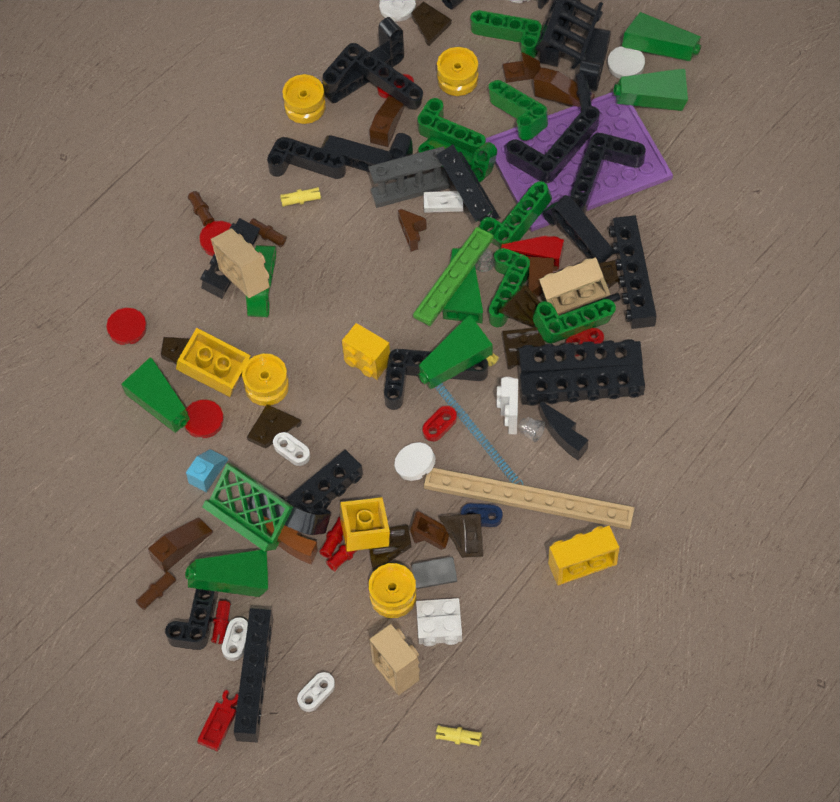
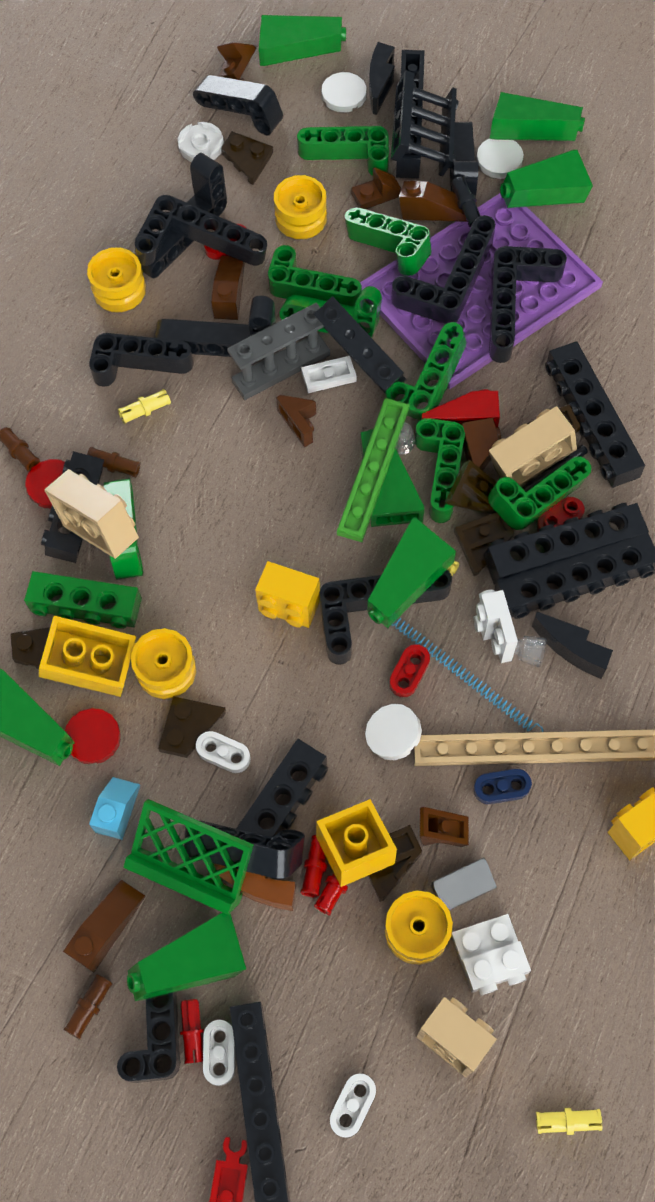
camera: 15 degrees left, 5 degrees up
(196, 309) = (45, 586): none -> green brick
(465, 533) = (491, 819): dark brown wing -> none
(579, 228) = (513, 371): black beam -> none

